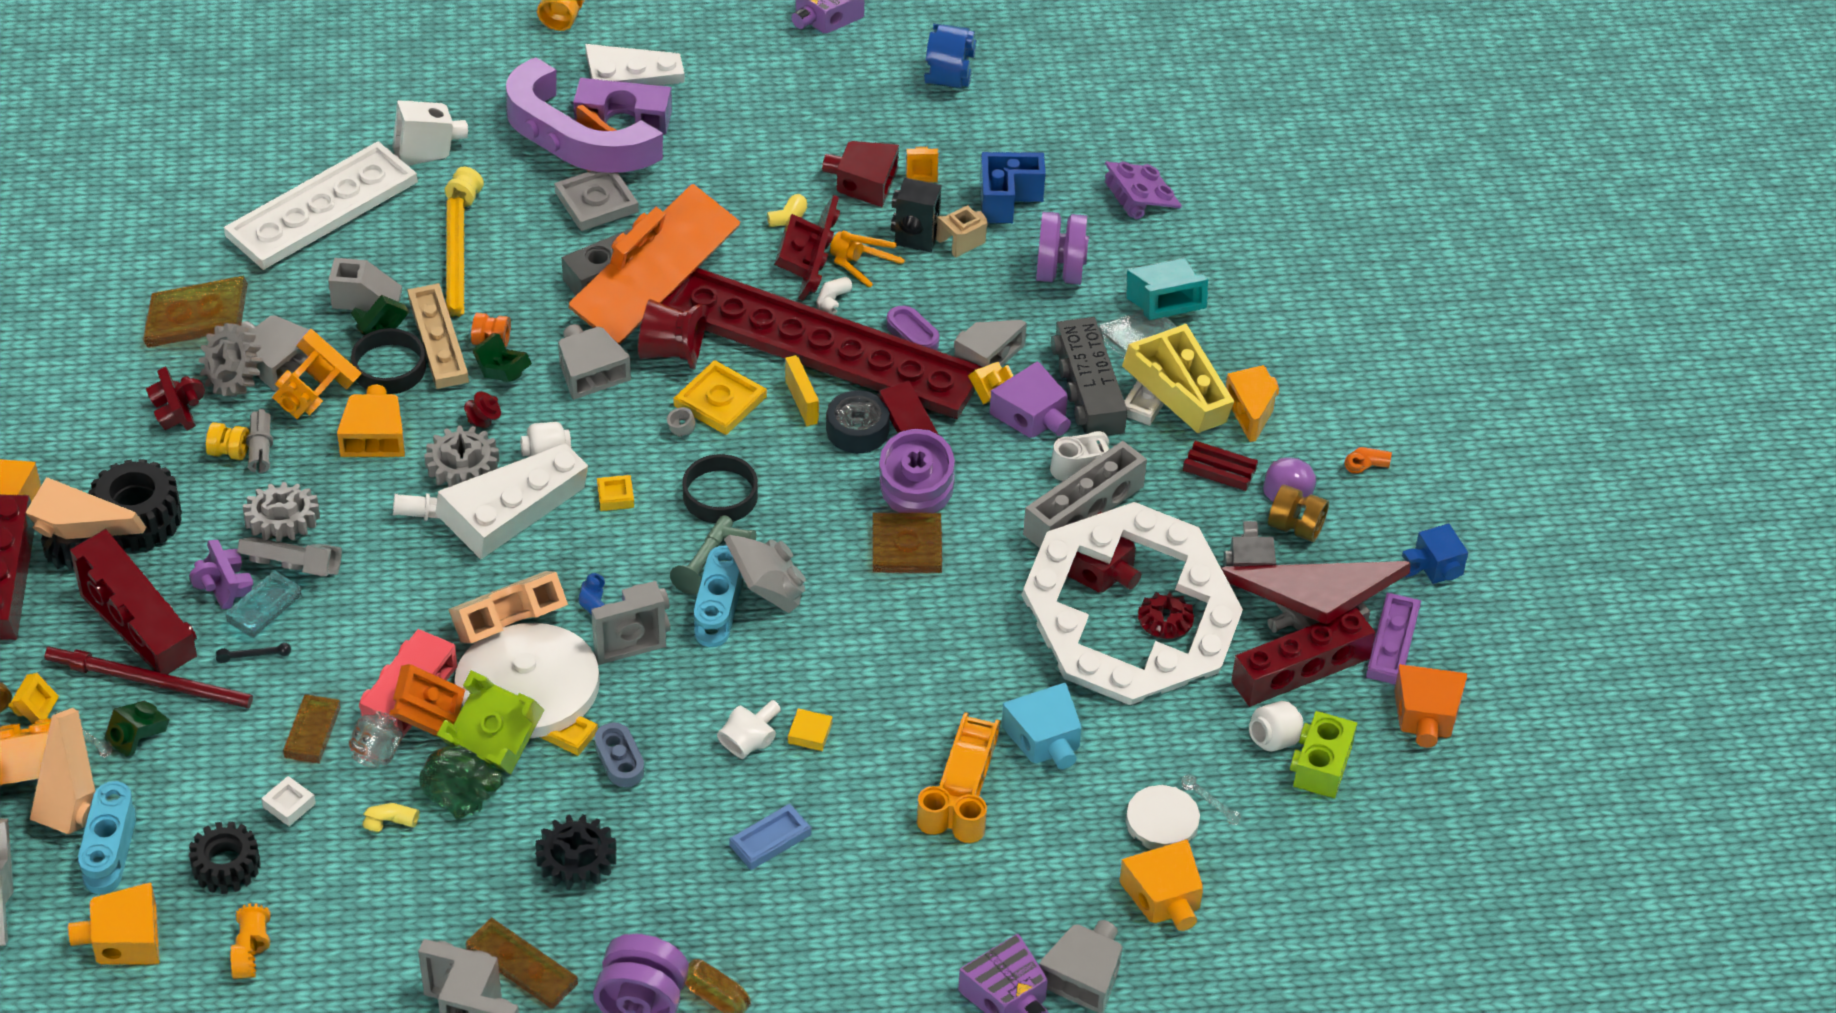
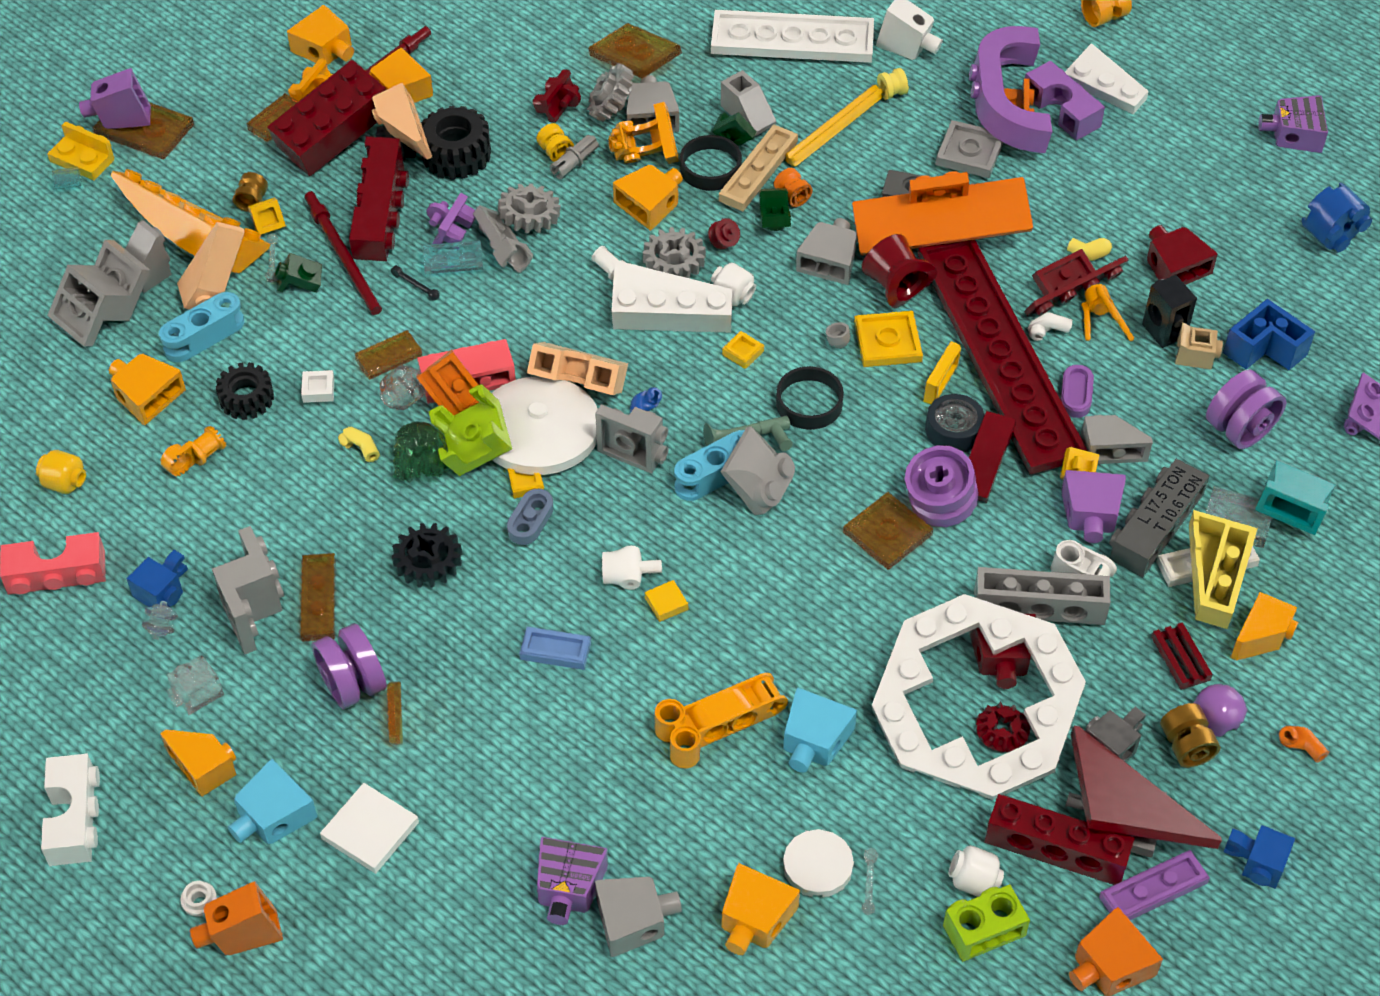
camera: 50 degrees right, 5 degrees up
(922, 164) = (1224, 280): light orange tile -> none

